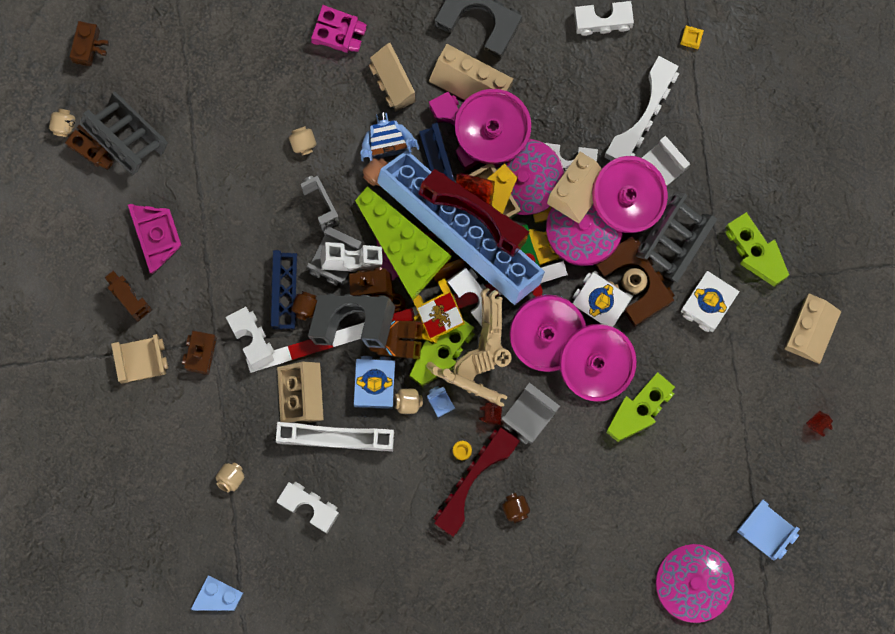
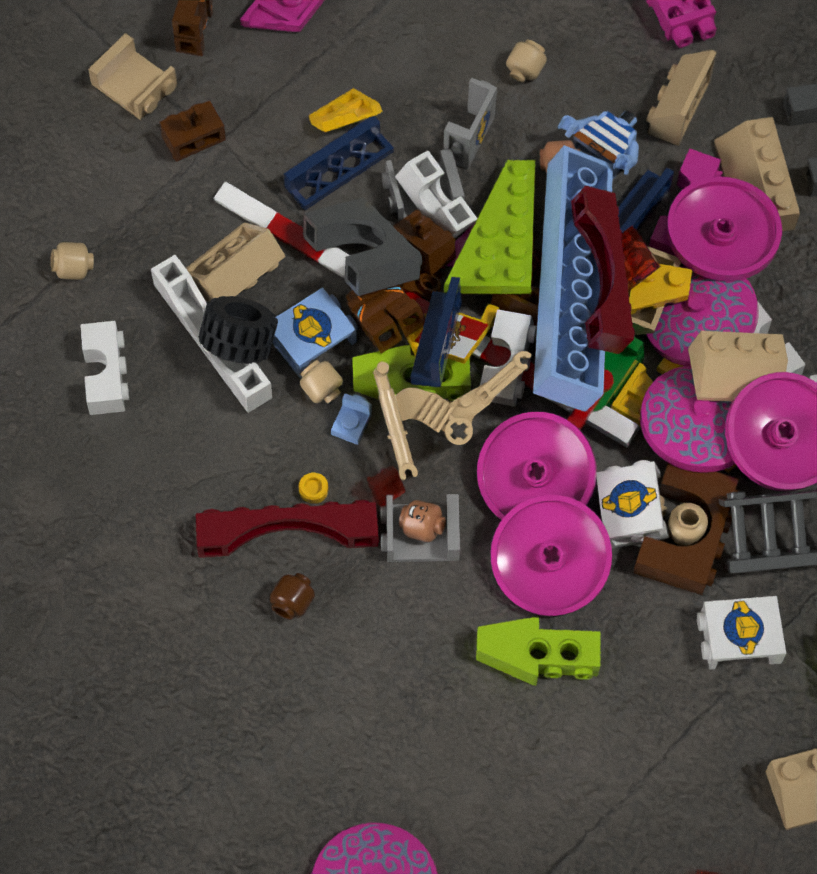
camera: 50 degrees right, 15 degrees down
(255, 262) = (345, 110): none -> yellow wing
(258, 352) = (244, 182): white arch -> none
(304, 305) = (338, 191): reddish brown head -> none
(350, 423) = (238, 329): none -> black tyre
(439, 326) = (437, 336): none -> dark blue fence
(528, 411) = (422, 521): none -> nougat head

